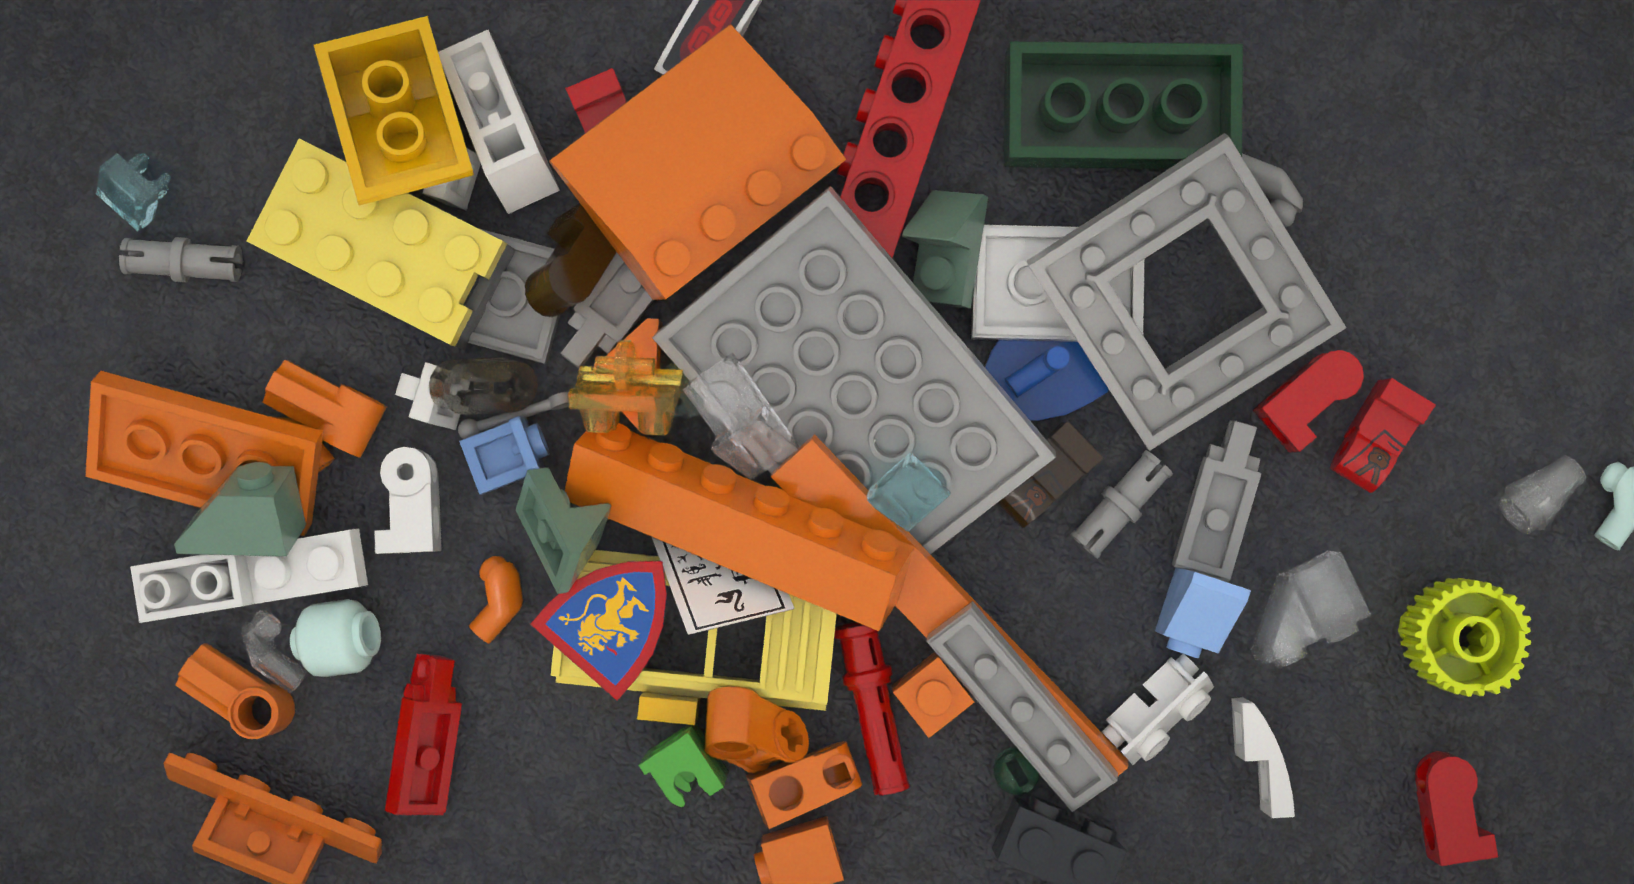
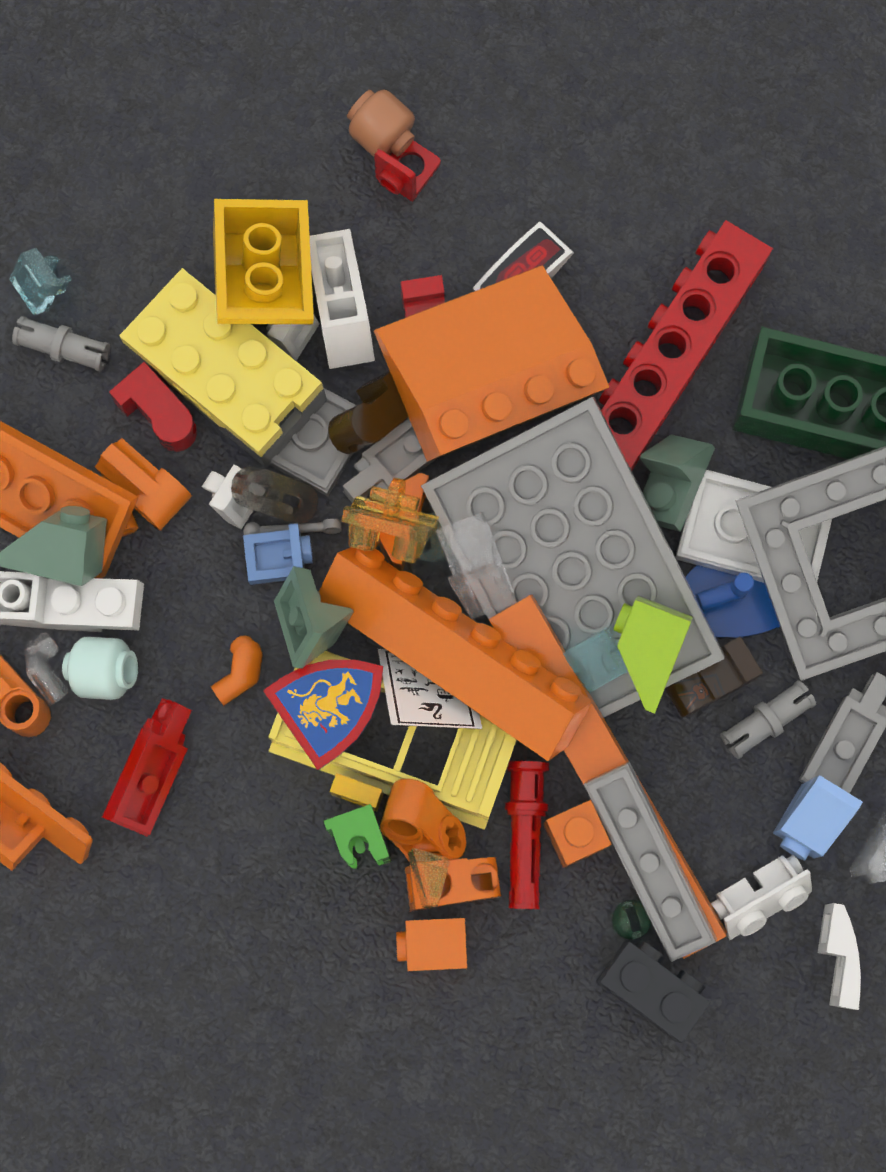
camera: 10 degrees right, 10 degrees down
(335, 321) = (159, 405): none -> red leg
(413, 503) = (191, 577): white leg -> none
(776, 791) = (429, 875): none -> clear yellow slope
(966, 466) = (650, 645): none -> lime slope

